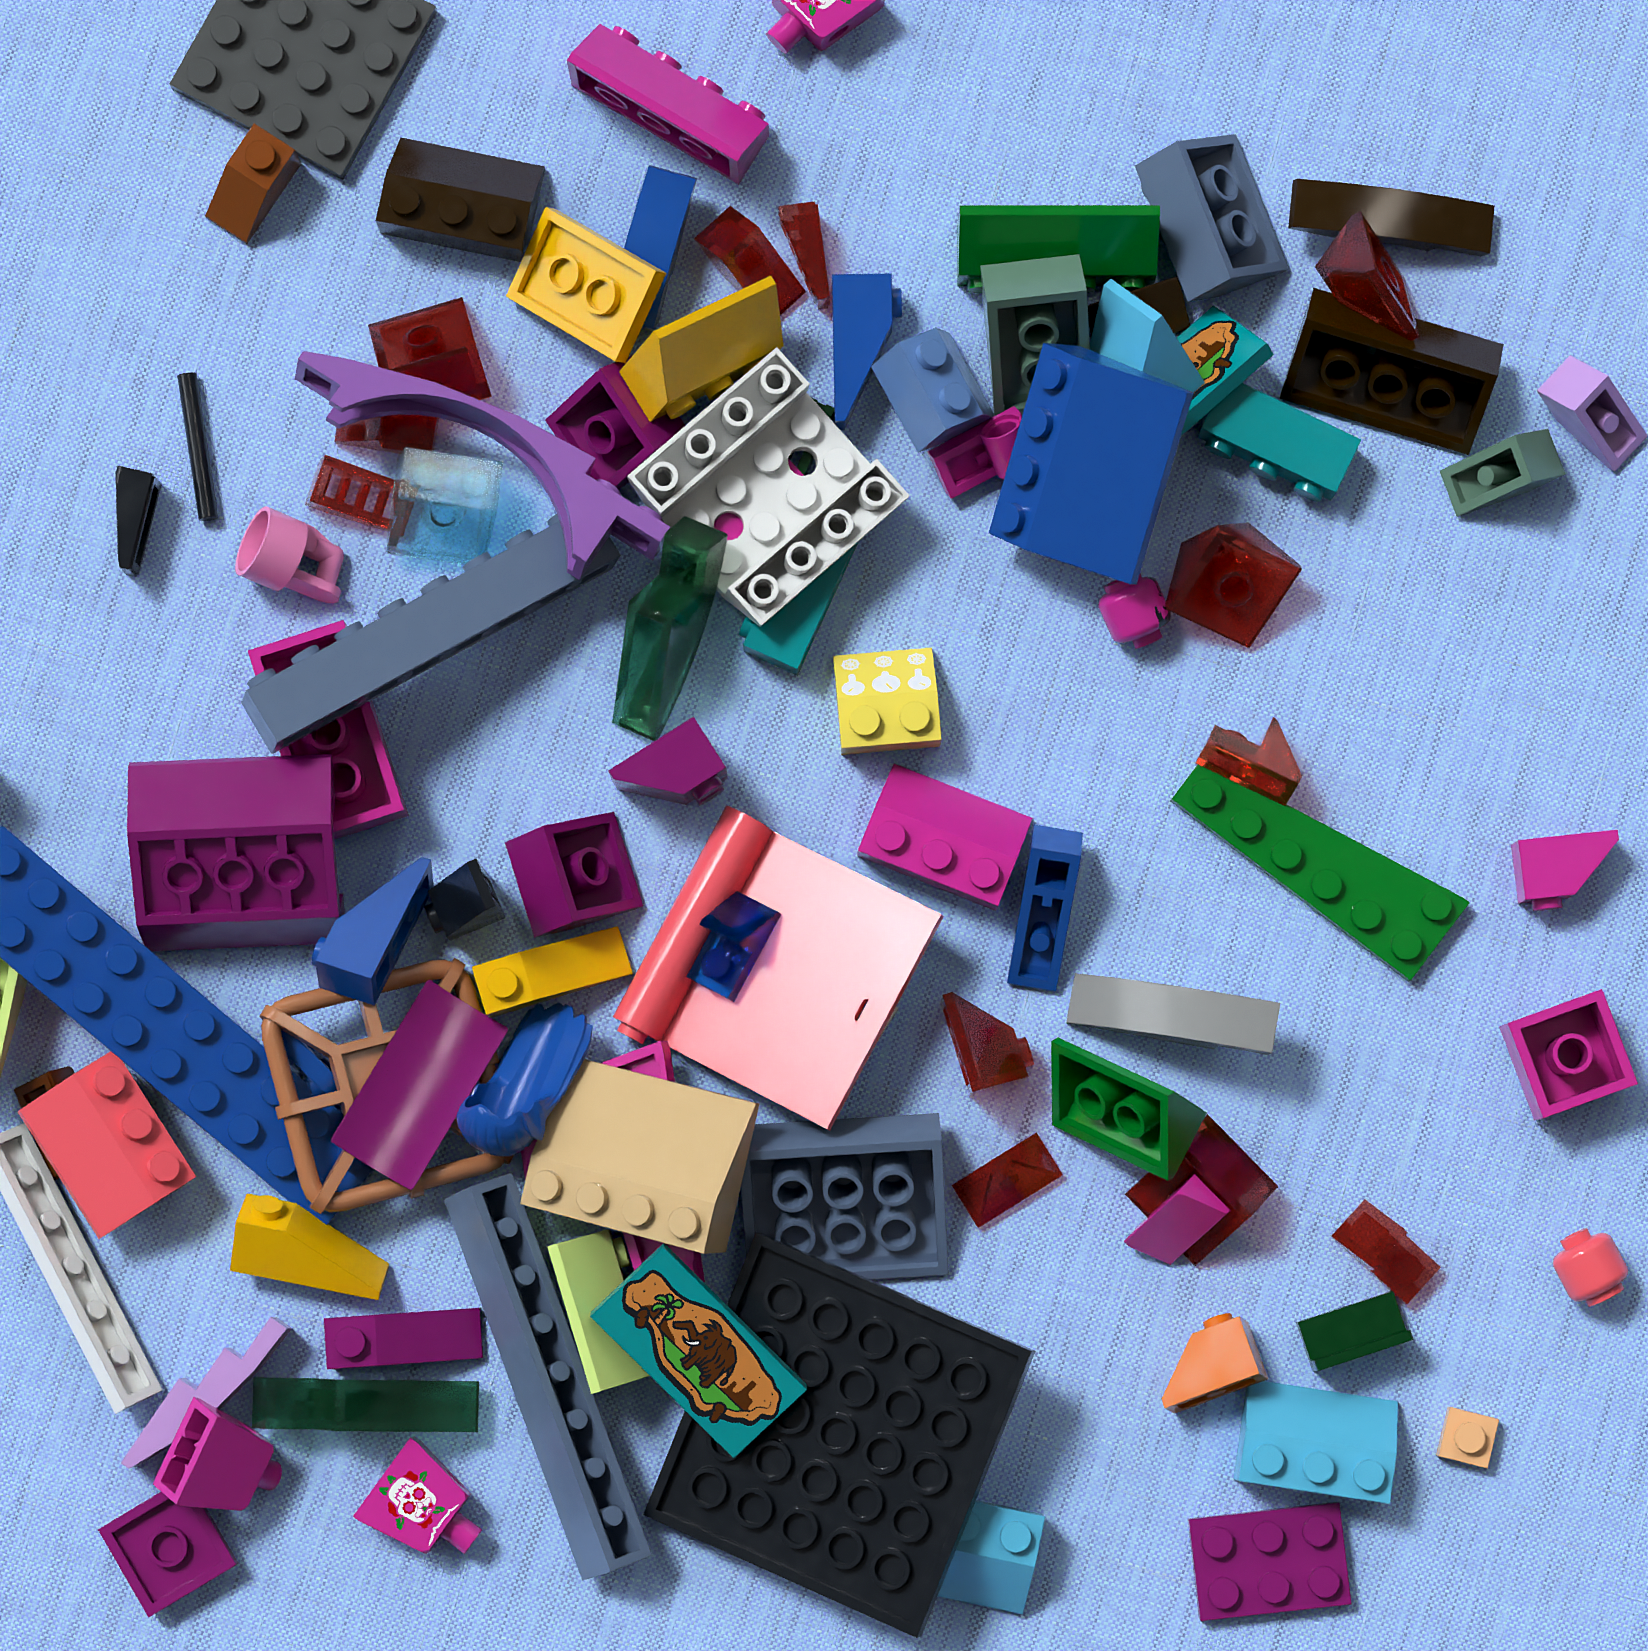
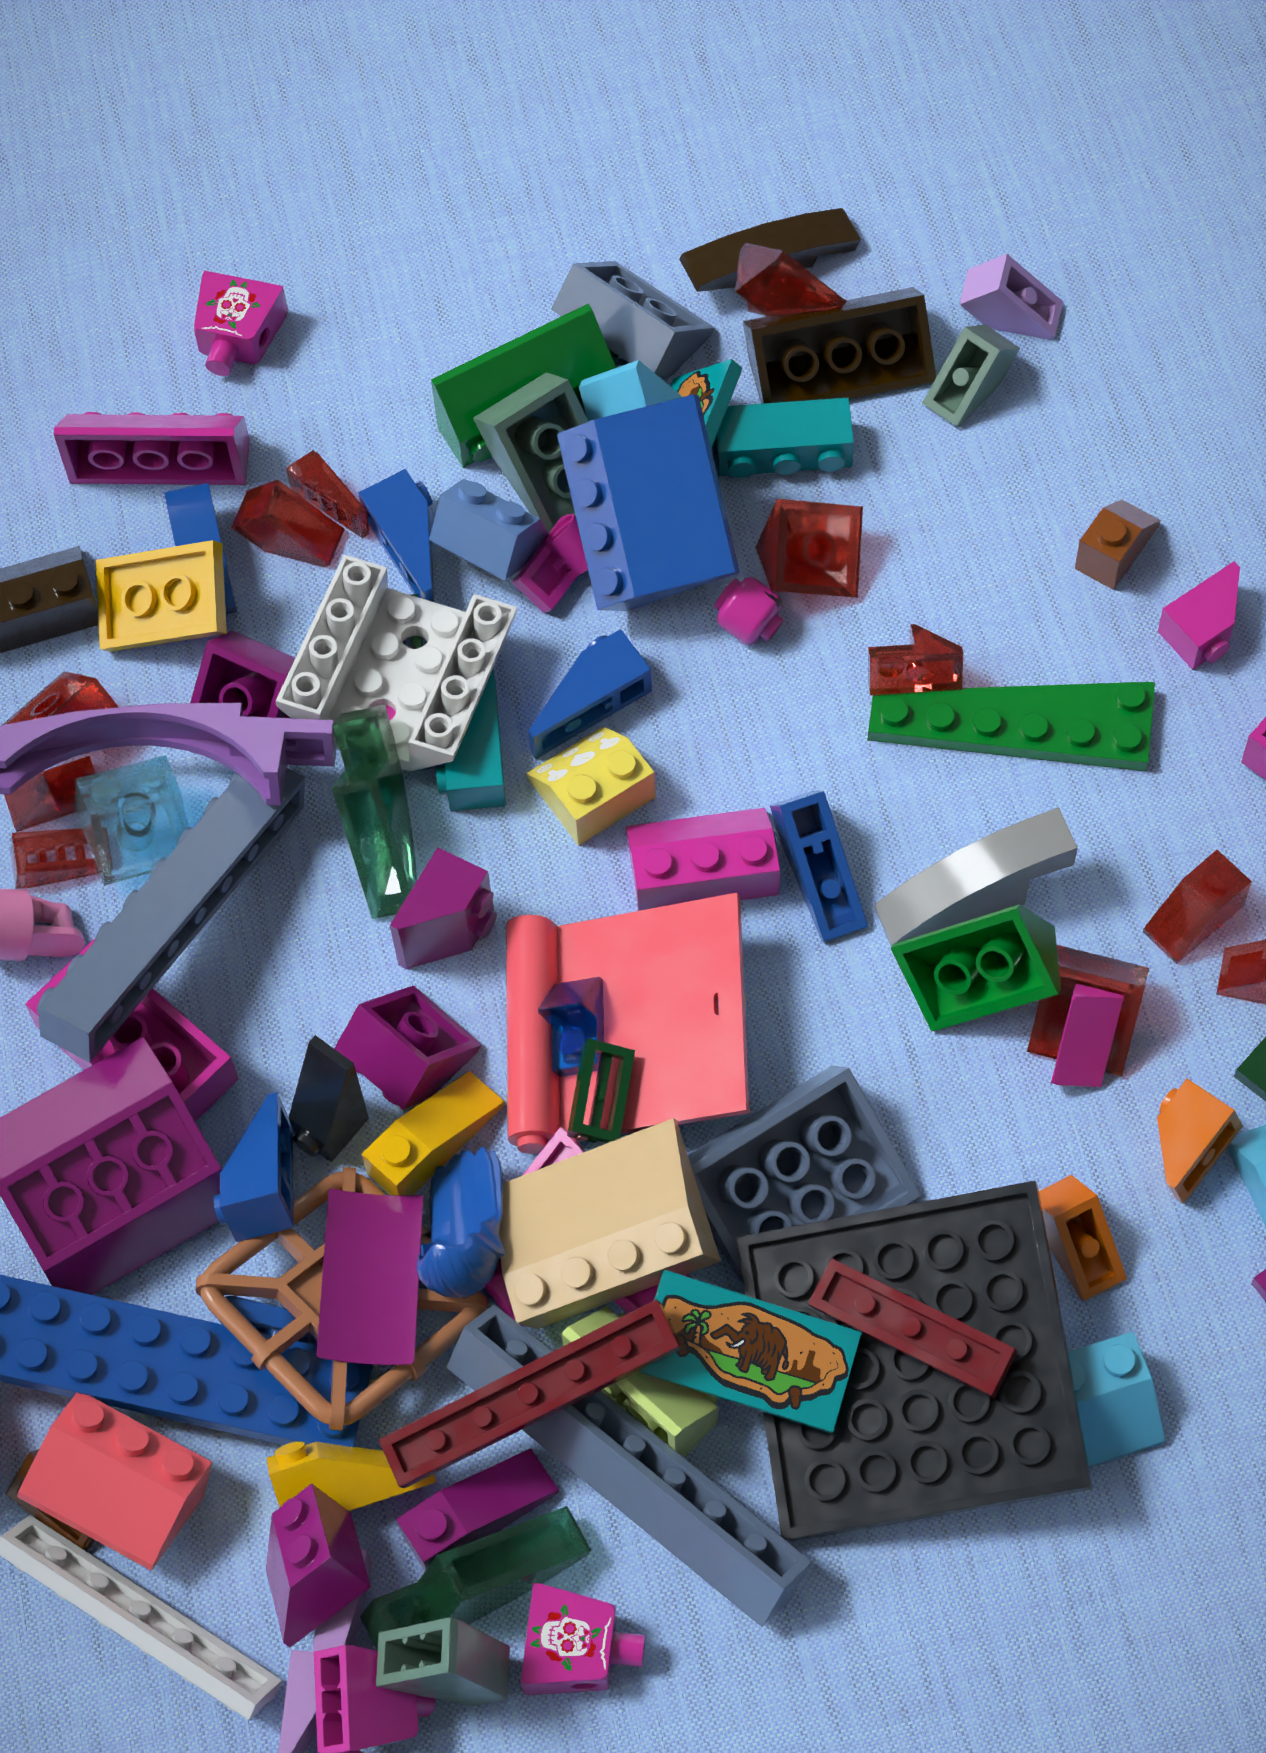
camera: 25 degrees left, 20 degrees down
(235, 1318) = (312, 1562): none -> magenta slope
(294, 1469) = (444, 1662): none -> sand green slope
(490, 1287) = (530, 1394): none -> dark red plate
(699, 1017) = (592, 1131): none -> dark green tile
(705, 351) = (282, 585): yellow slope -> none
(849, 1414) = (913, 1328): none -> dark red plate
(948, 606) = (596, 686): none -> blue slope
(984, 1046) = (832, 990): clear red slope -> none
(1007, 1180) = (920, 1093): clear red slope -> none
(1058, 1395) = (1080, 1237): none -> orange slope
(1360, 1151) = (1198, 906): none -> clear red slope
(1530, 732) = (1114, 542): none -> dark orange slope

